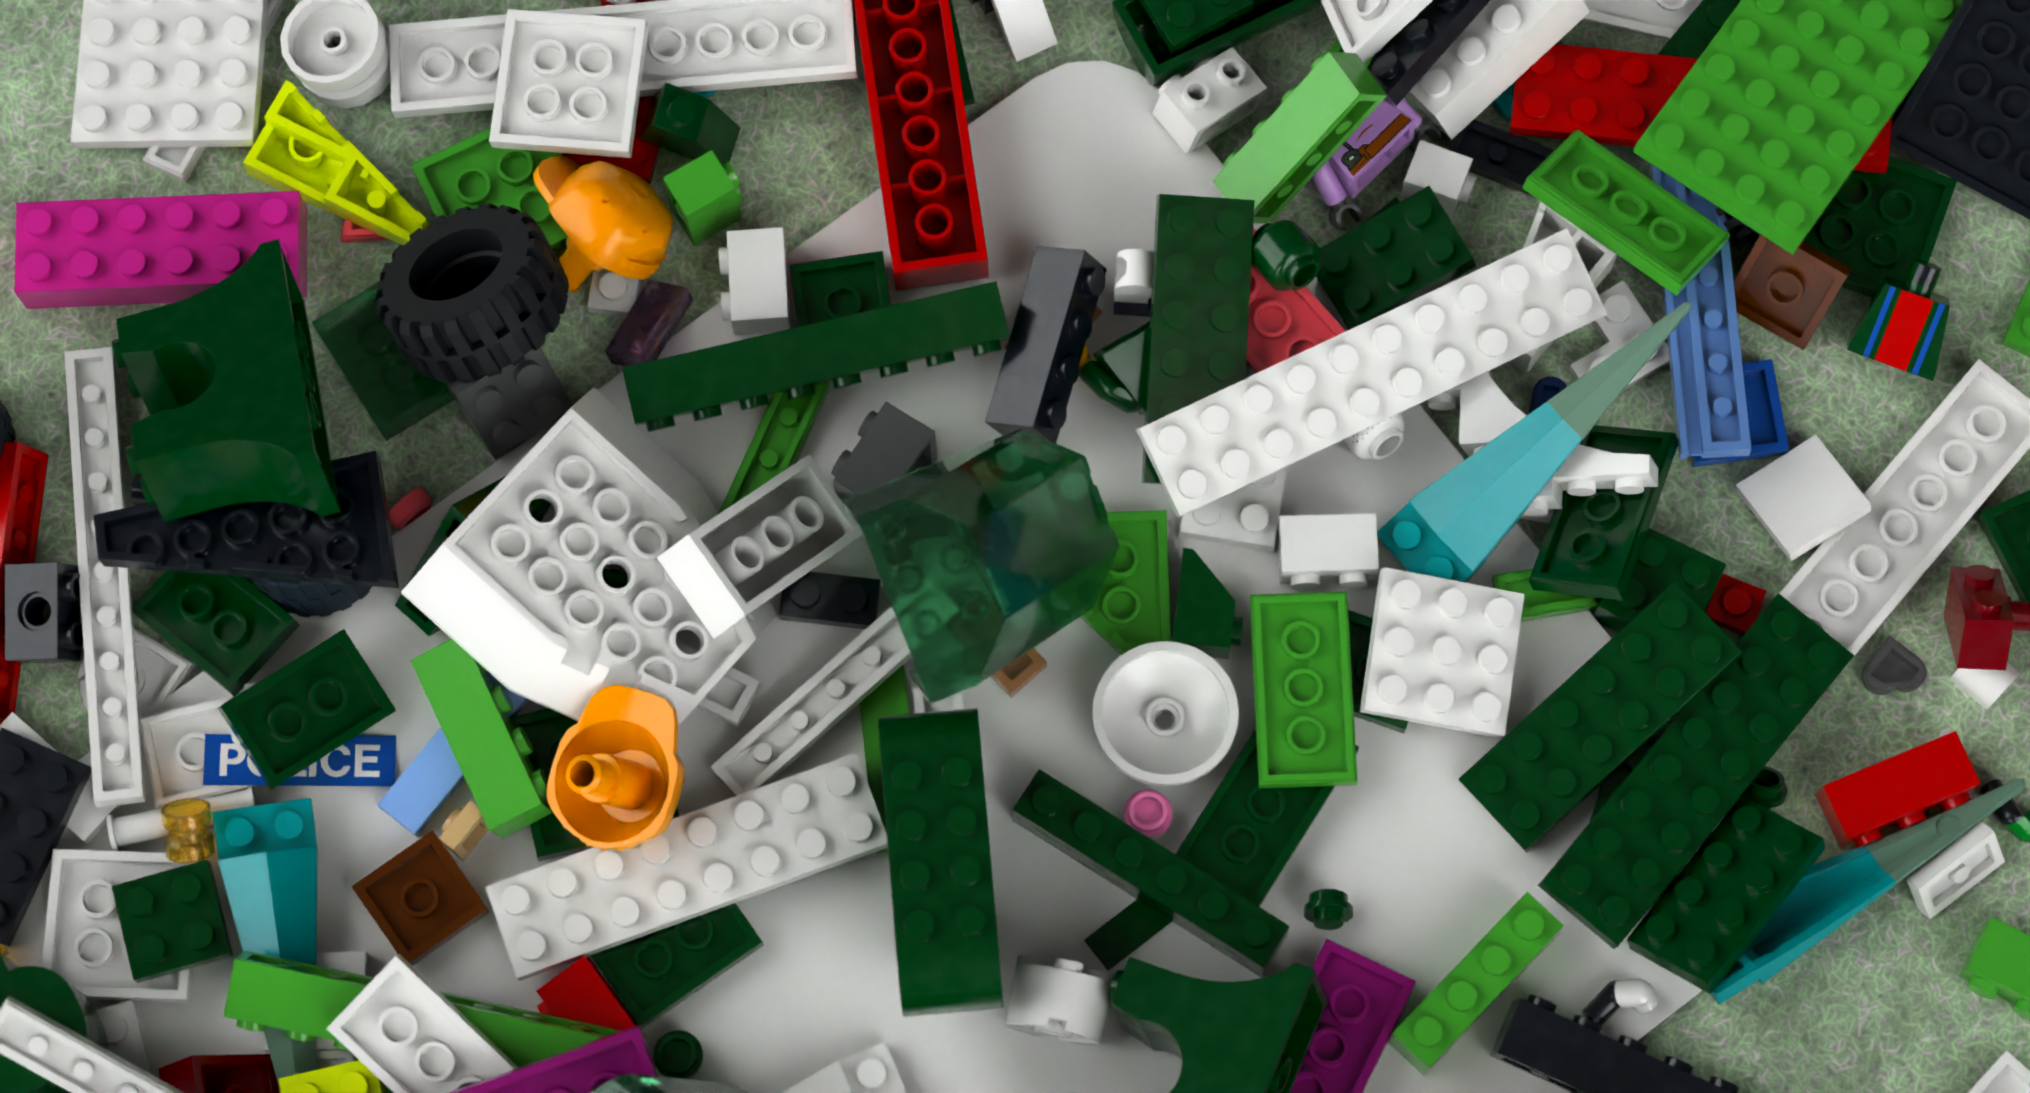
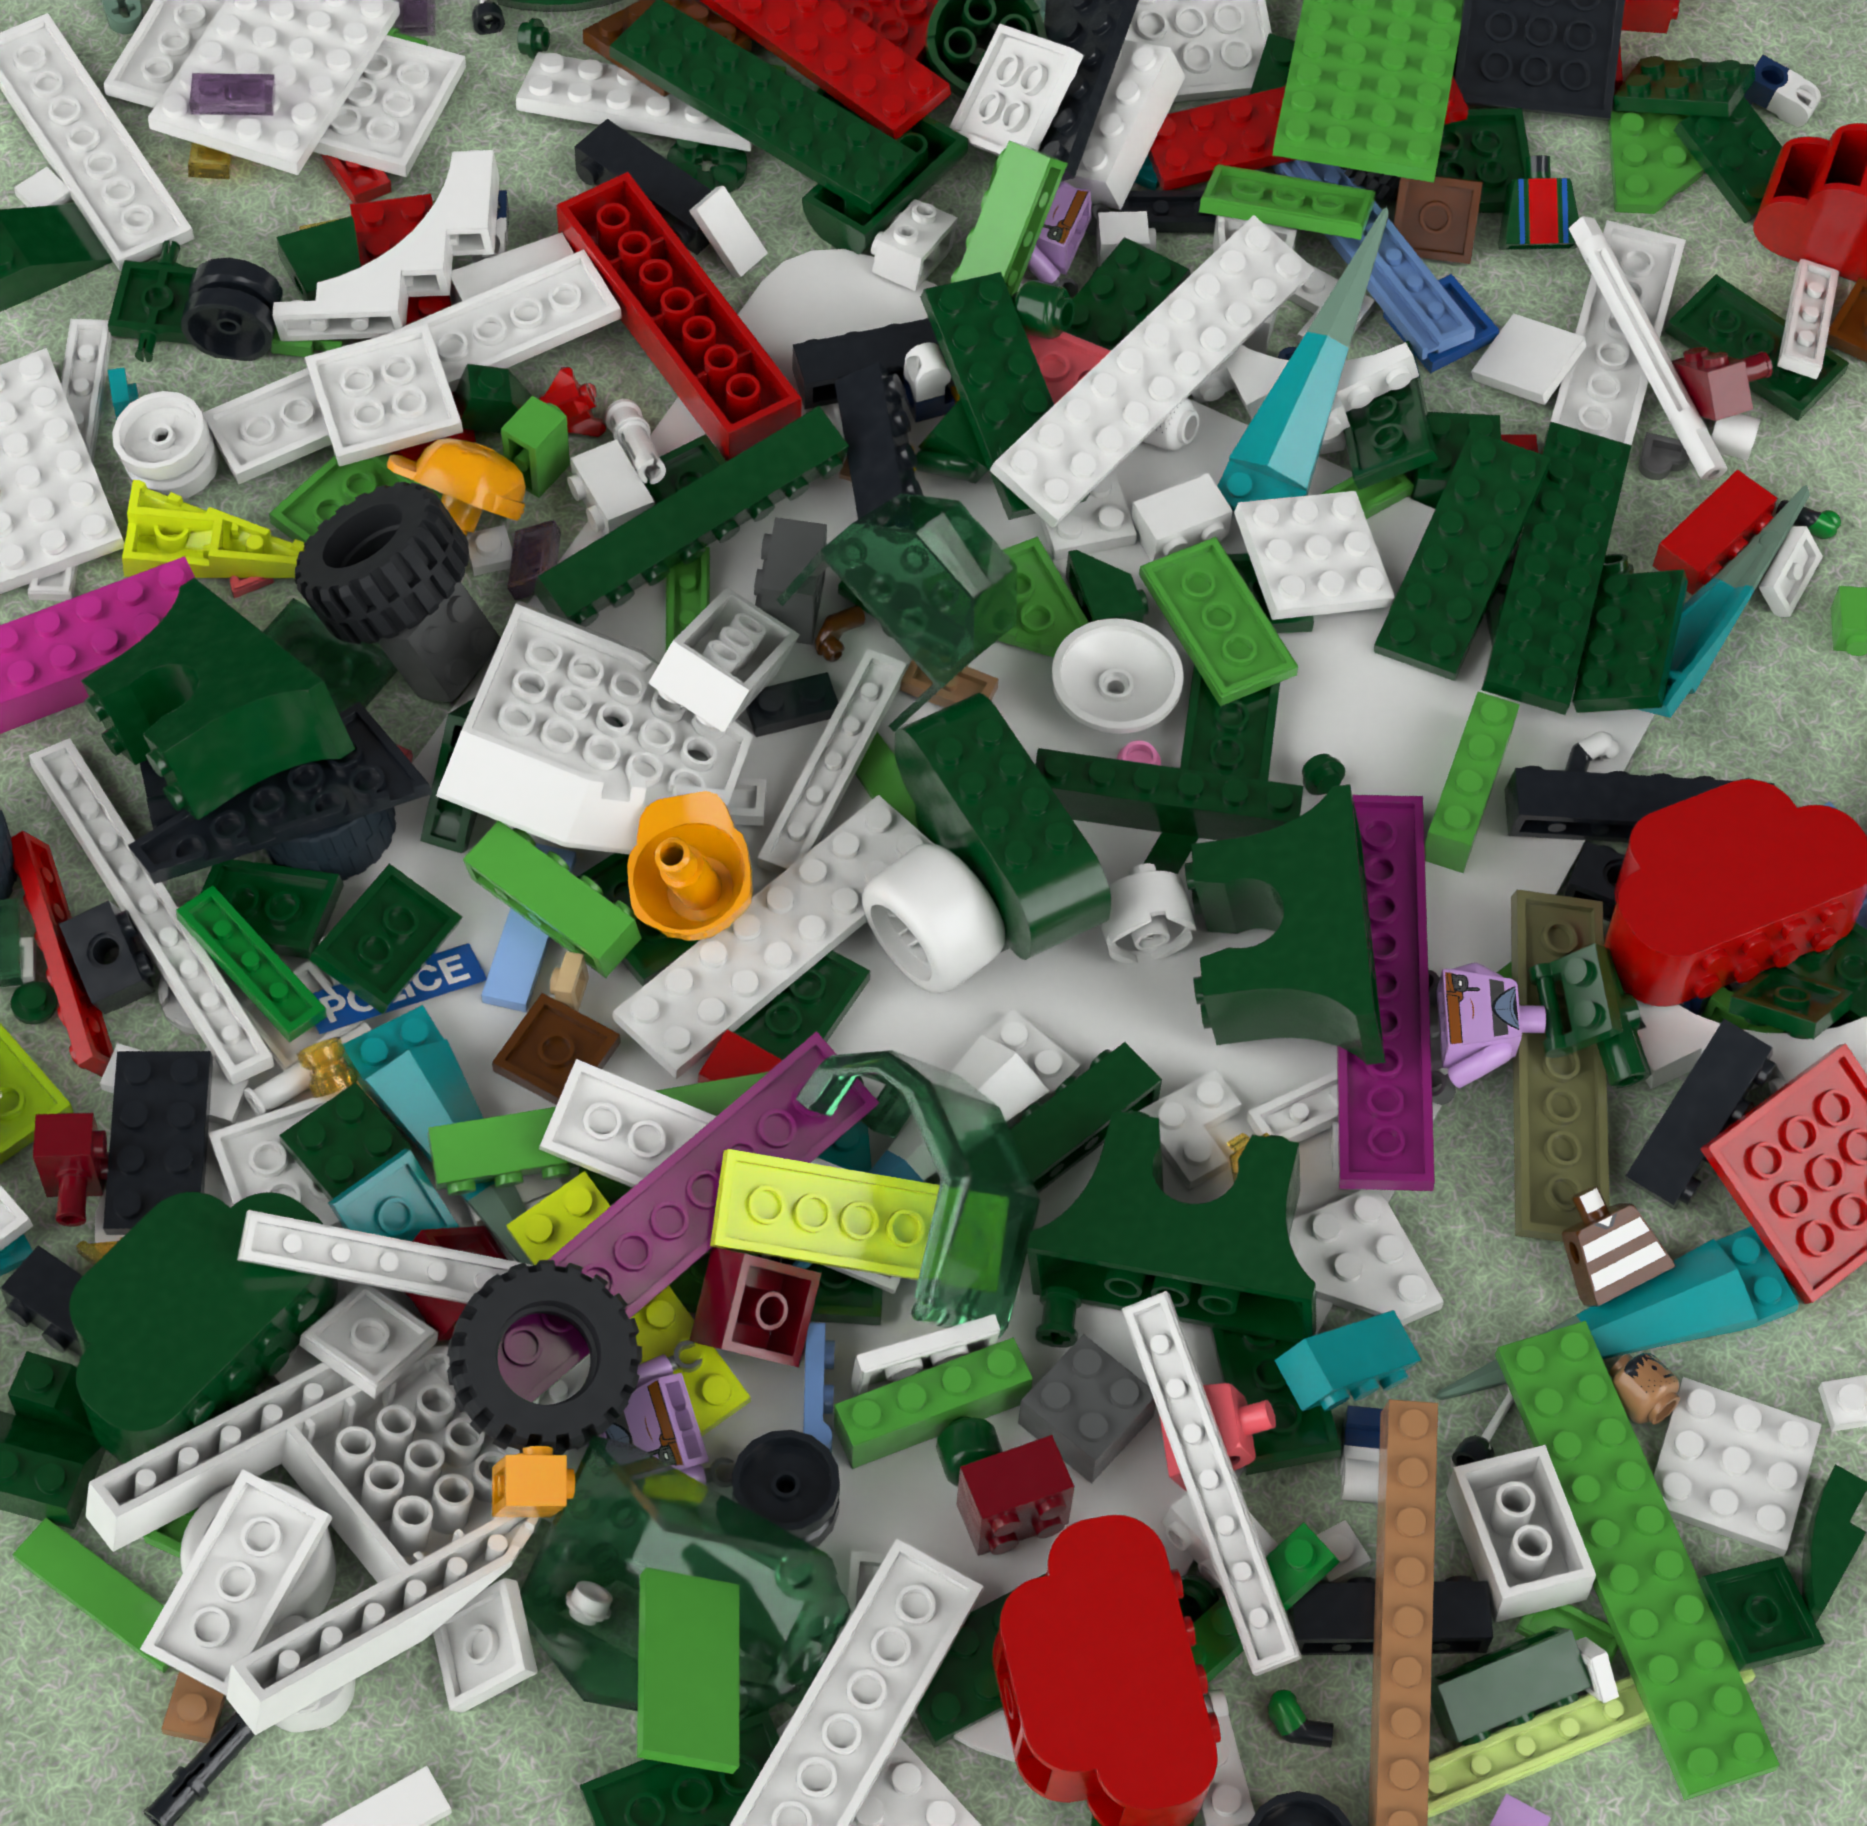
camera: 30 degrees left, 15 degrees down
(167, 684) = (251, 963): none -> green plate
(182, 1014) = (393, 1201): none -> teal plate
(765, 155) = (575, 403): none -> red rock
(810, 219) = (633, 434): none -> white pin
(839, 922) = (934, 918): none -> white wheel
(1078, 222) = (823, 361): none -> black brick
(1933, 639) = (1648, 349): none -> white piece

